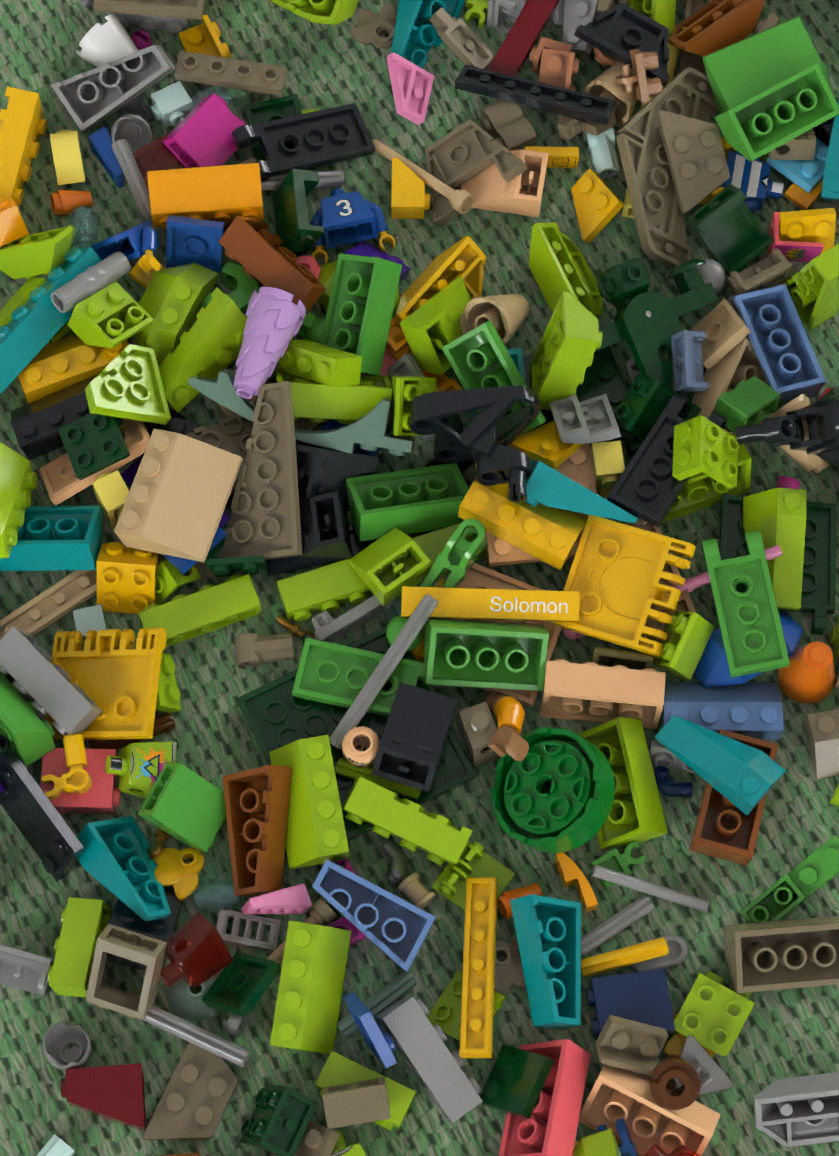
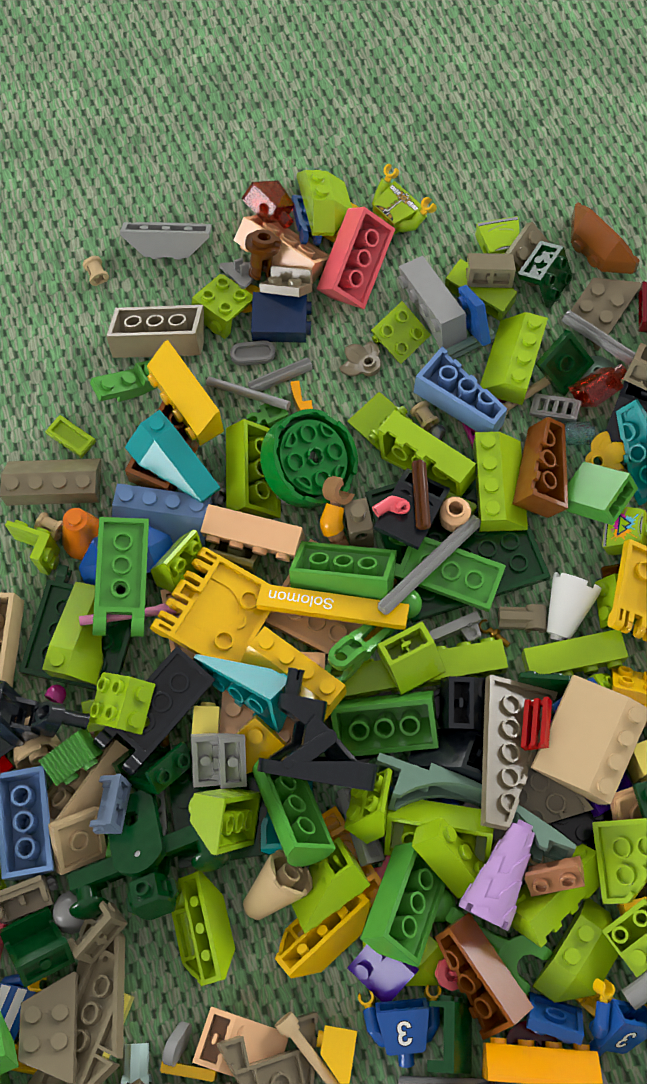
camera: 165 degrees left, 0 degrees up
(207, 355) = (555, 876): none -> nougat bracket
(210, 670) = (569, 605): none -> white cone
(244, 504) = (531, 724): none -> red tile
(284, 901) = (522, 419): bright pink slope -> none
(406, 744) = (421, 496): none -> reddish brown axle
(439, 726) = (392, 504): none -> coral arm
(478, 968) = (386, 352): yellow tile -> none
(503, 901) = (347, 400): orange cone -> none
(516, 1081) = (372, 277): dark green plate -> none
(550, 958) = (332, 351): teal wedge -> none
(567, 173) = (177, 1043): none -> light grey tile
(594, 204) = (158, 1008): yellow wing -> none
(624, 957) = (278, 348): yellow axle -> none
(668, 786) = (216, 468): arm -> none
(671, 245) = (99, 935): none -> dark tan hinge
(725, 839) = (184, 394): none -> yellow slope

